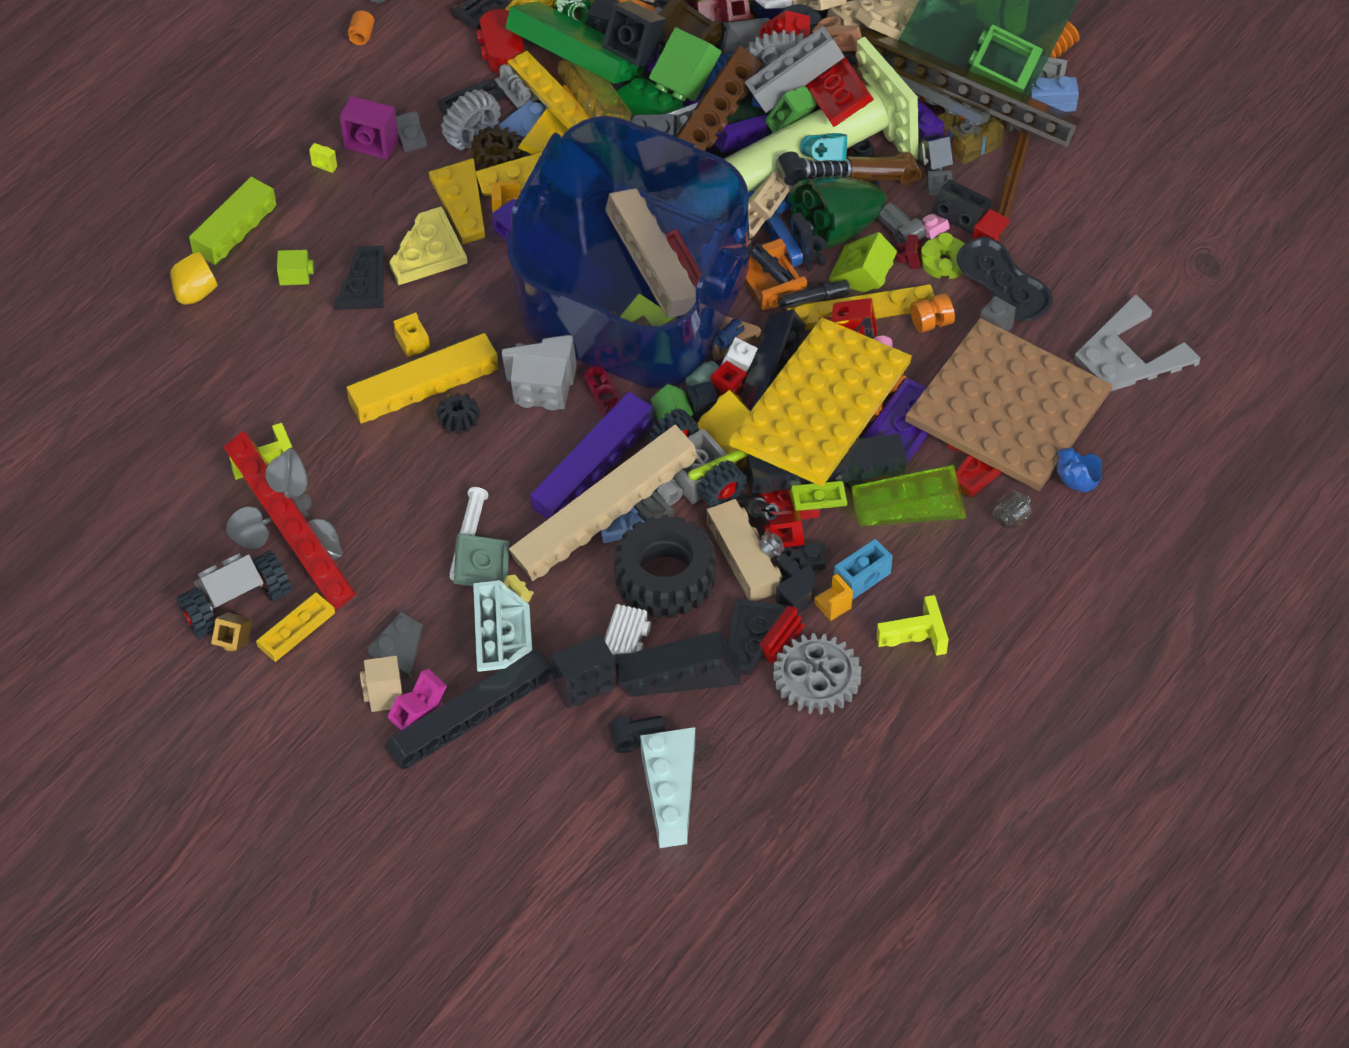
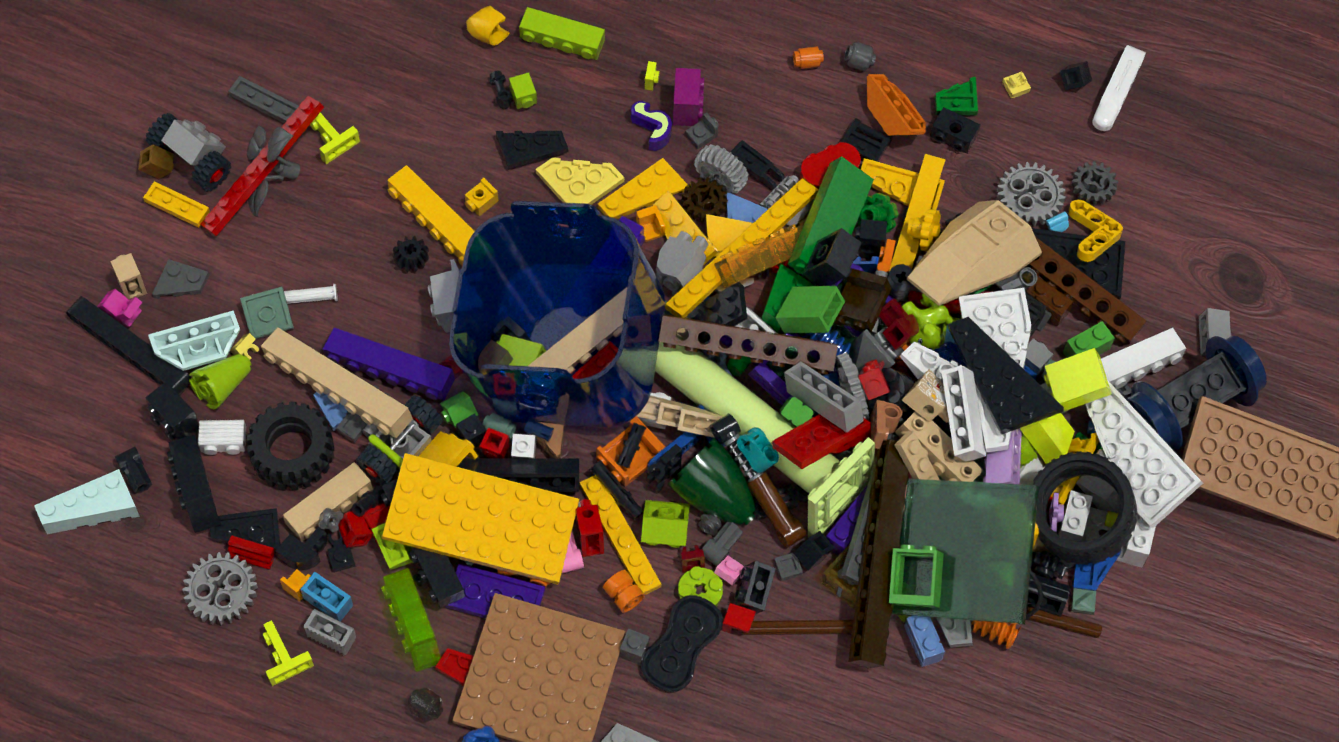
camera: 70 degrees right, 10 degrees up
(197, 509) = (262, 99): none -> dark grey plate
(292, 289) = (504, 96): none -> black bar
(382, 166) = (653, 120): none -> dark purple animal
(555, 621) = (219, 379): none -> lime cone
(875, 226) = (709, 524): none -> flat silver plate
(905, 575) = (330, 632): none -> light grey brick

